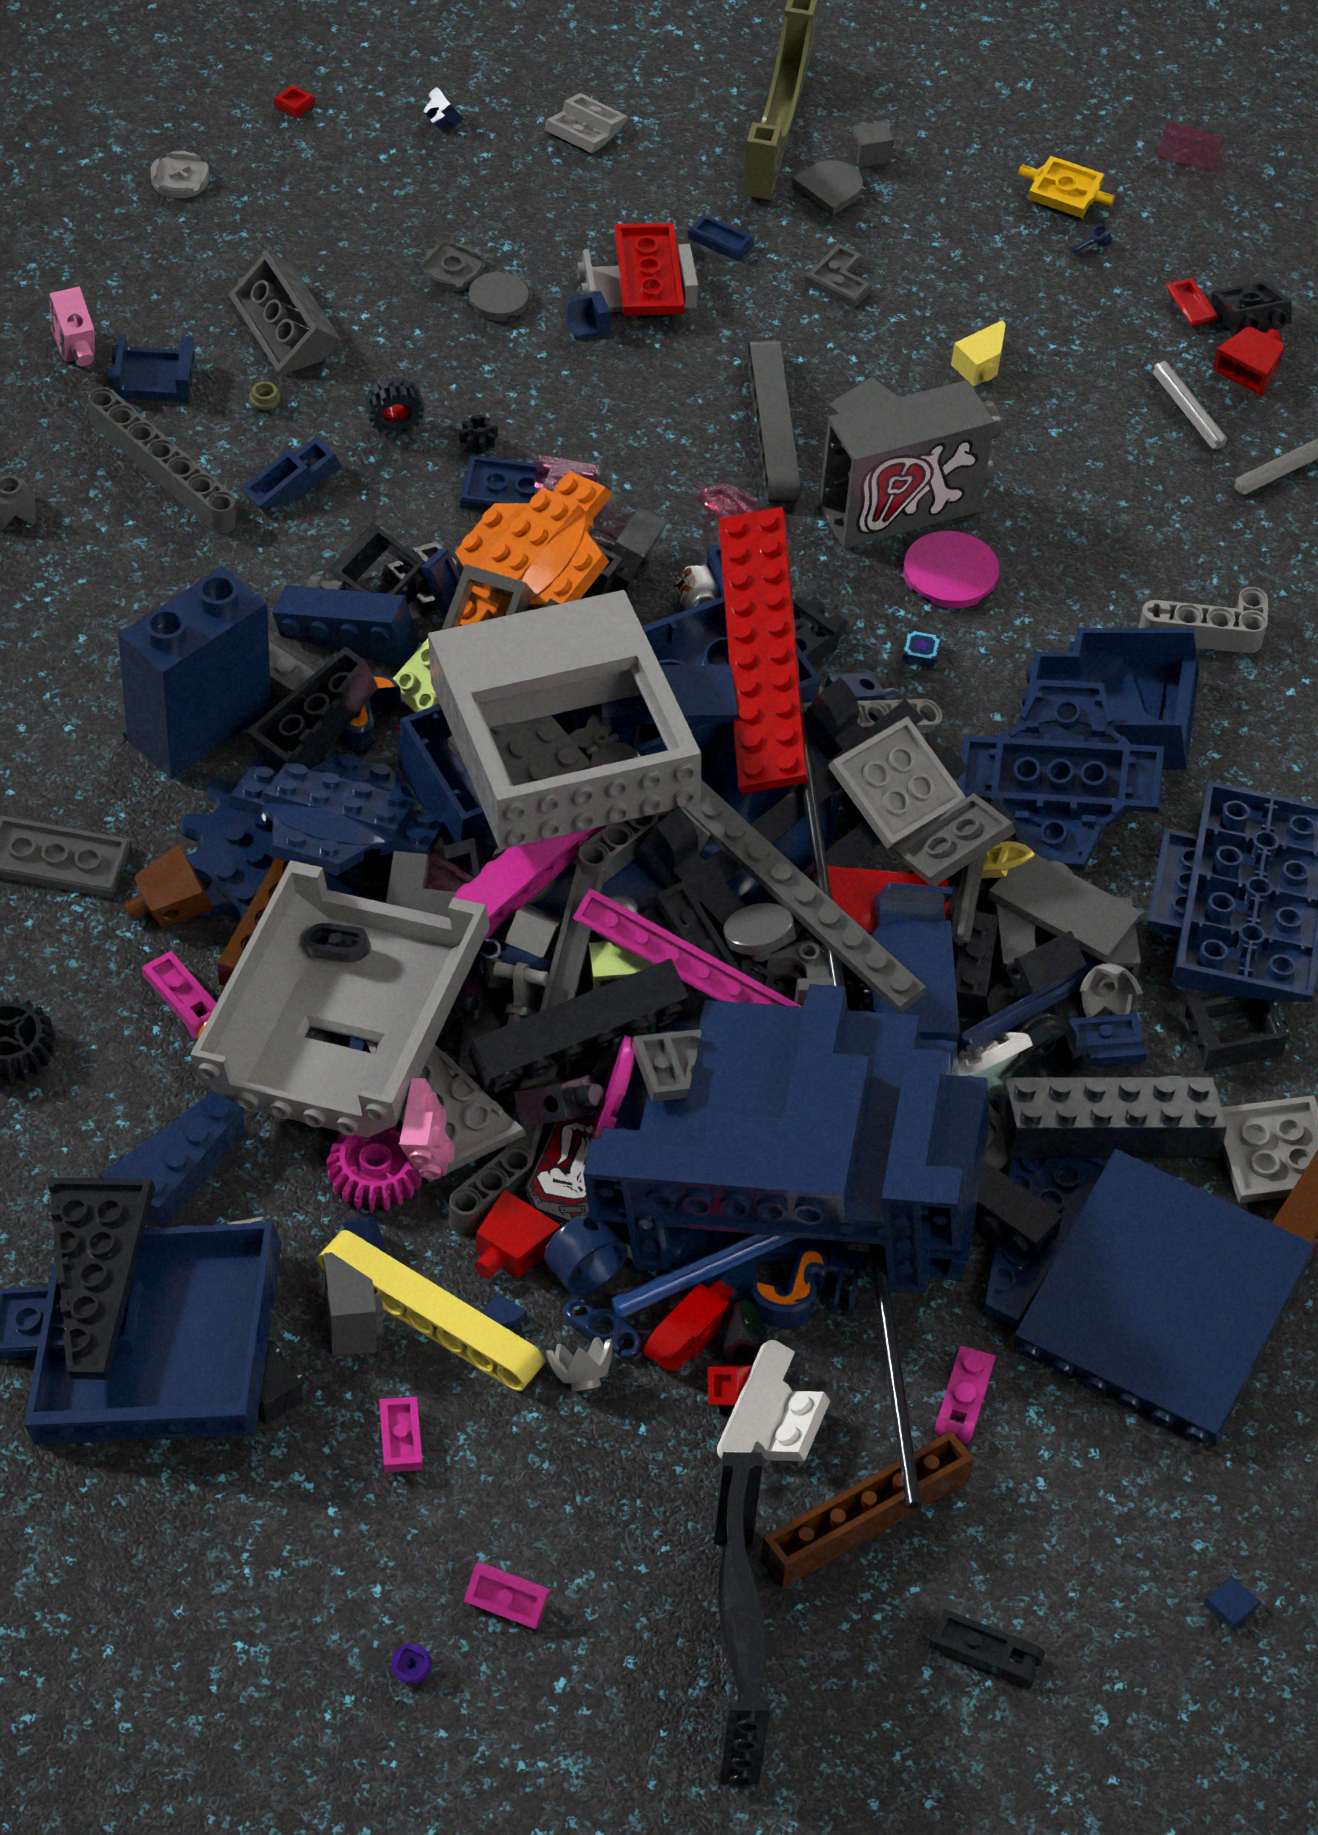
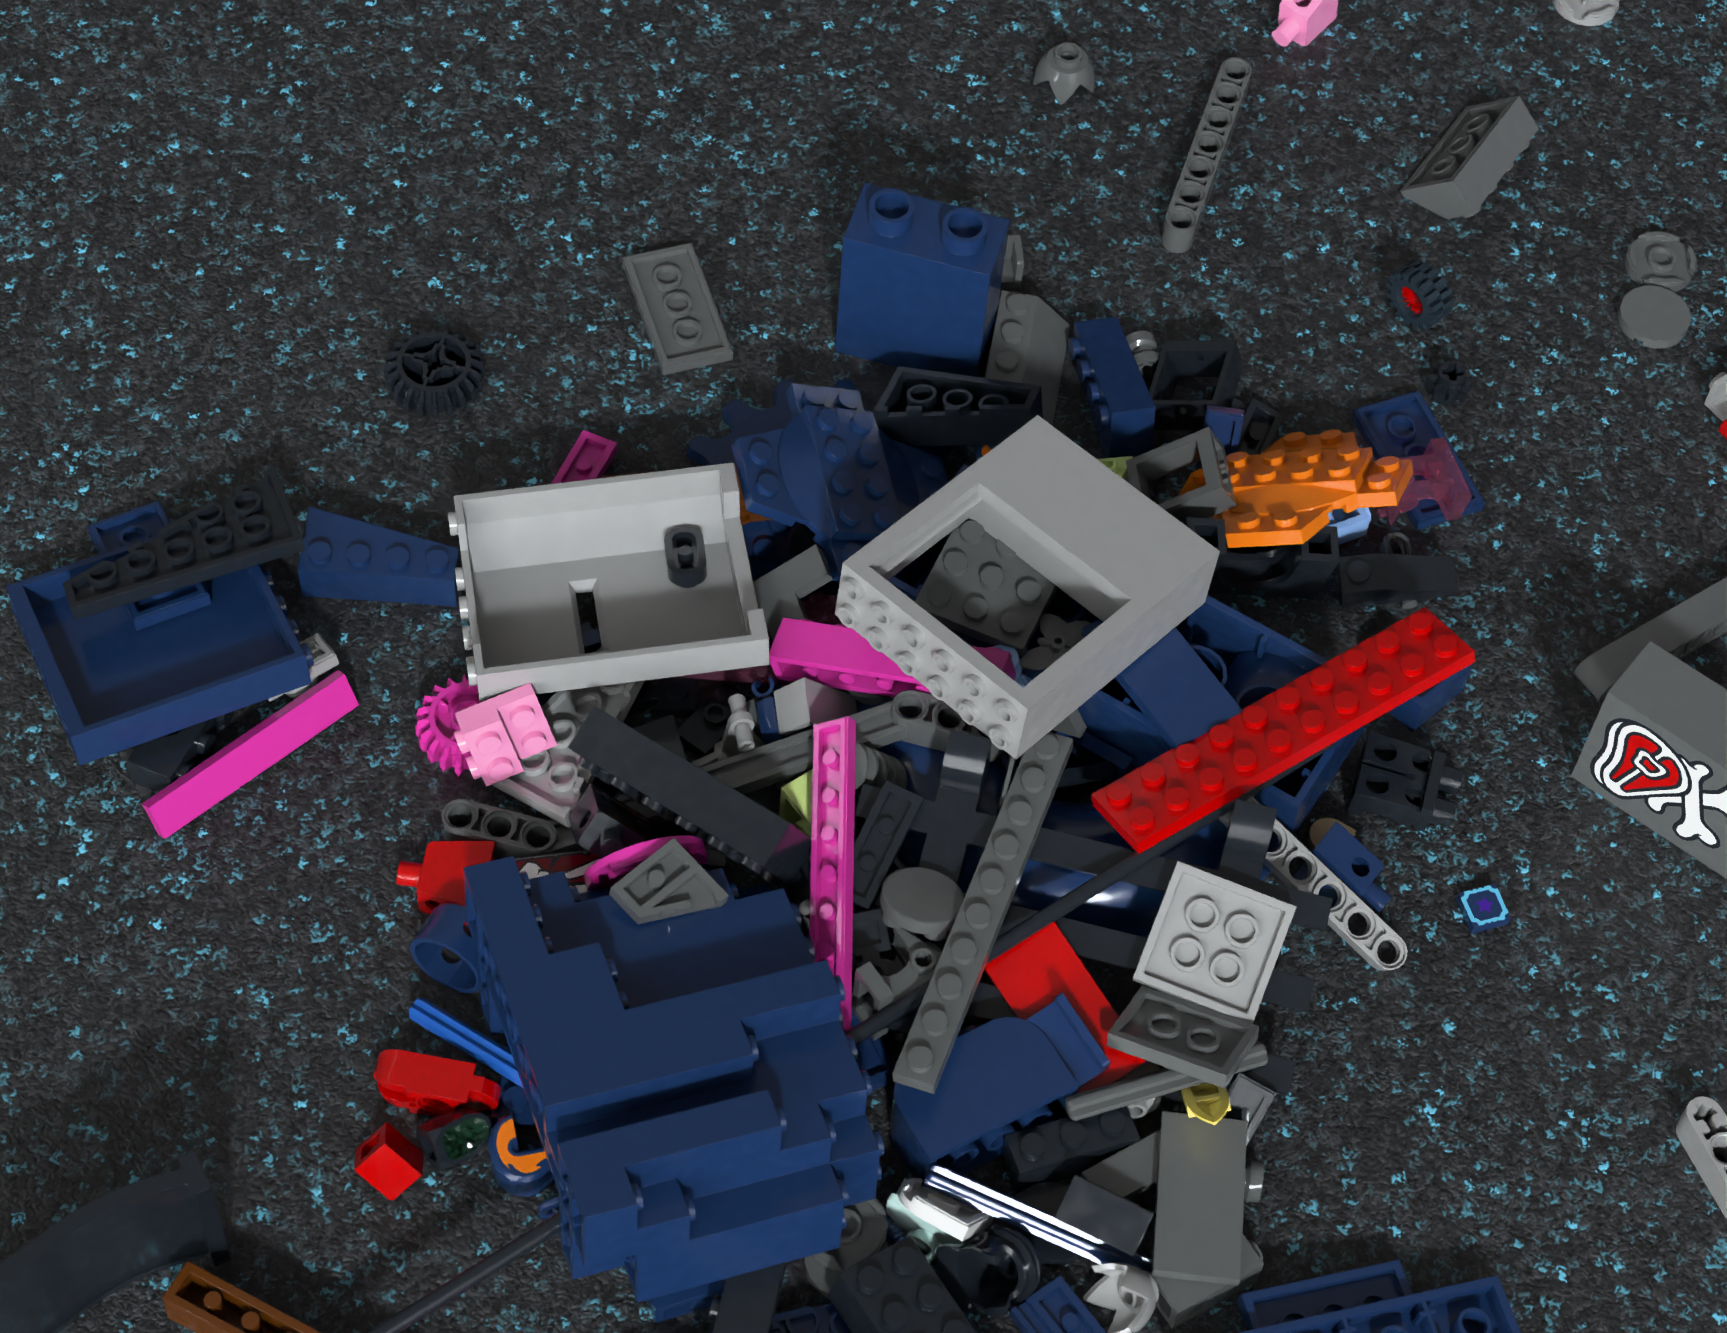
camera: 60 degrees right, 5 degrees up
(153, 372) = (1315, 95): dark blue panel -> none
(169, 890) = (687, 407): reddish brown torso -> none
(264, 396) = (1356, 194): olive plate -> none
(292, 474) = (1272, 261): dark blue slope -> none
(306, 1328) = (250, 754): none -> dark pink tile
(351, 1308) = (275, 775): dark grey slope -> none
(367, 1229) = (387, 757): dark blue tile -> none
(400, 1434) = (170, 893): dark pink plate -> none
(441, 1314) = (326, 853): light yellow beam -> none
(504, 1311) = (362, 913): dark blue tile -> none
(507, 1595) = (28, 1069): dark pink plate -> none
(583, 1368) = (327, 1008): light grey piece -> none
(585, 1325) = (392, 994): dark blue piece -> none
(588, 315) = (1690, 400): dark blue panel -> none
(727, 501) = (1535, 652): clear pink wing -> none
(772, 1415) = (365, 1205): white plate -> none
(951, 569) = (1619, 888): dark pink tile -> none
(1064, 771) = (1385, 1115): dark blue plate -> none
(1146, 677) = (1557, 1132): dark blue panel -> none

